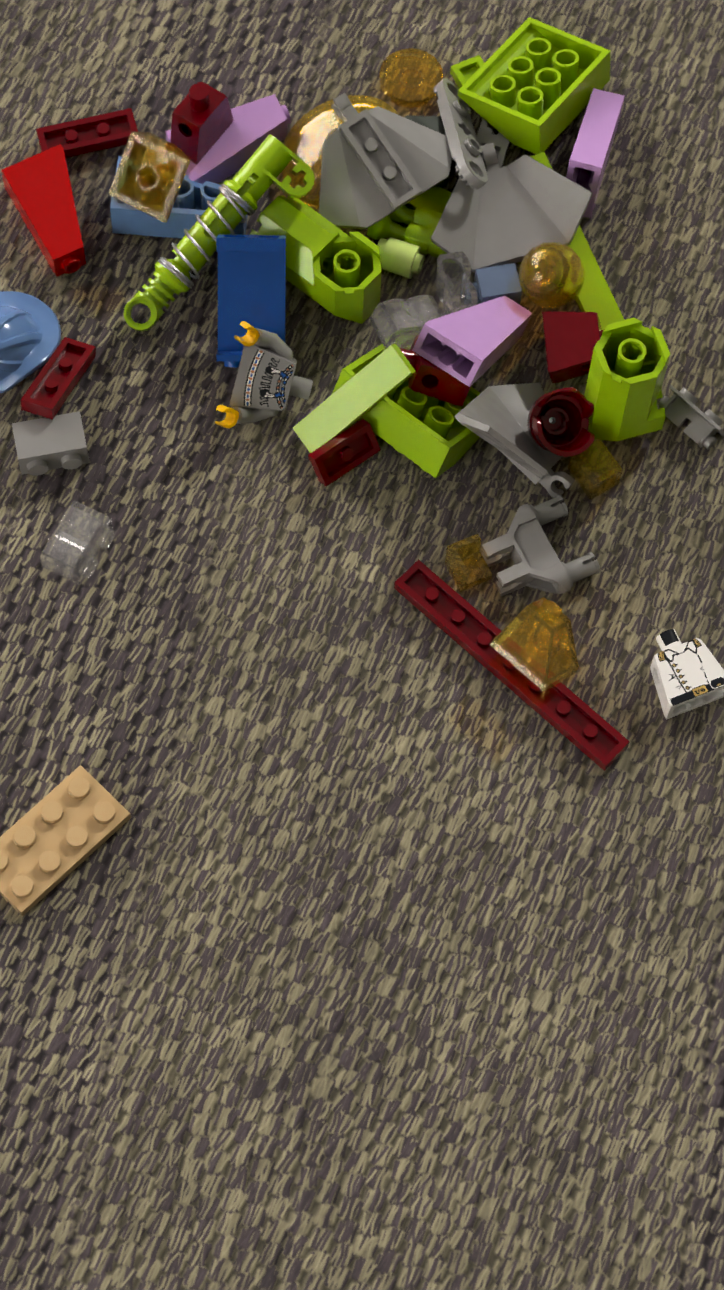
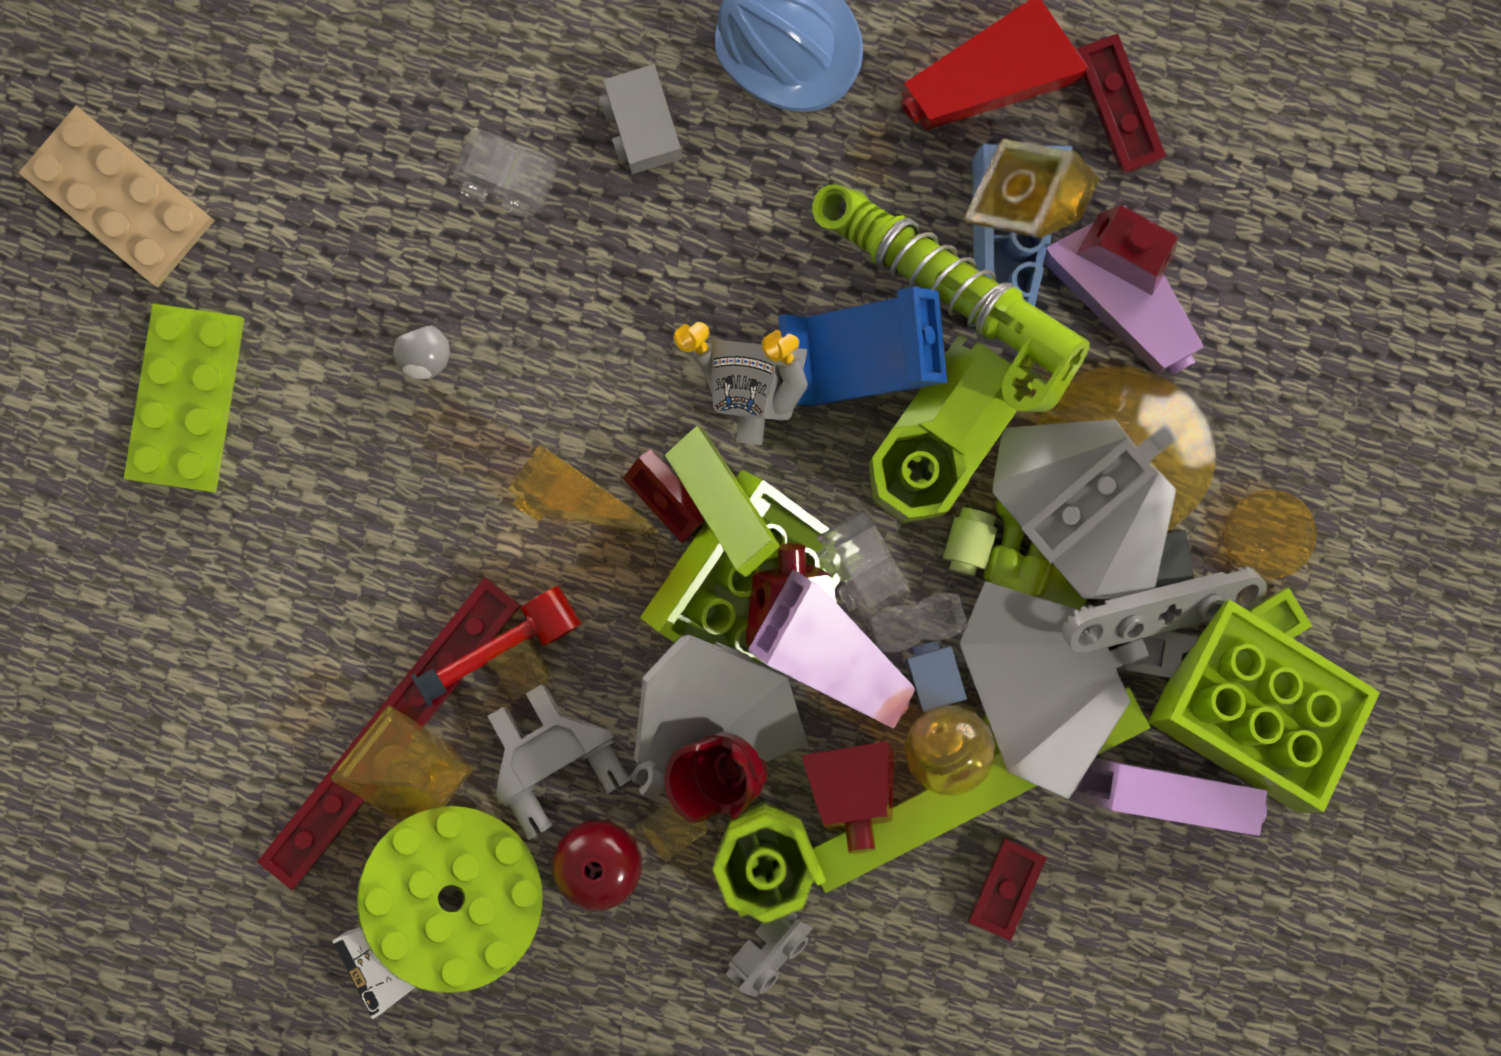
camera: 90 degrees right, 20 degrees up
(58, 378) = (732, 115): dark red plate -> none
(212, 612) = (422, 352): none -> light grey piece
(226, 800) = (184, 398): none -> lime plate
(334, 511) = (565, 495): none -> clear yellow slope
(430, 542) = (546, 617): none -> red piece
(622, 527) = (618, 859): none -> dark red cylinder
(653, 259) = (1007, 889): none -> dark red plate
(668, 645) = (402, 909): none -> lime plate

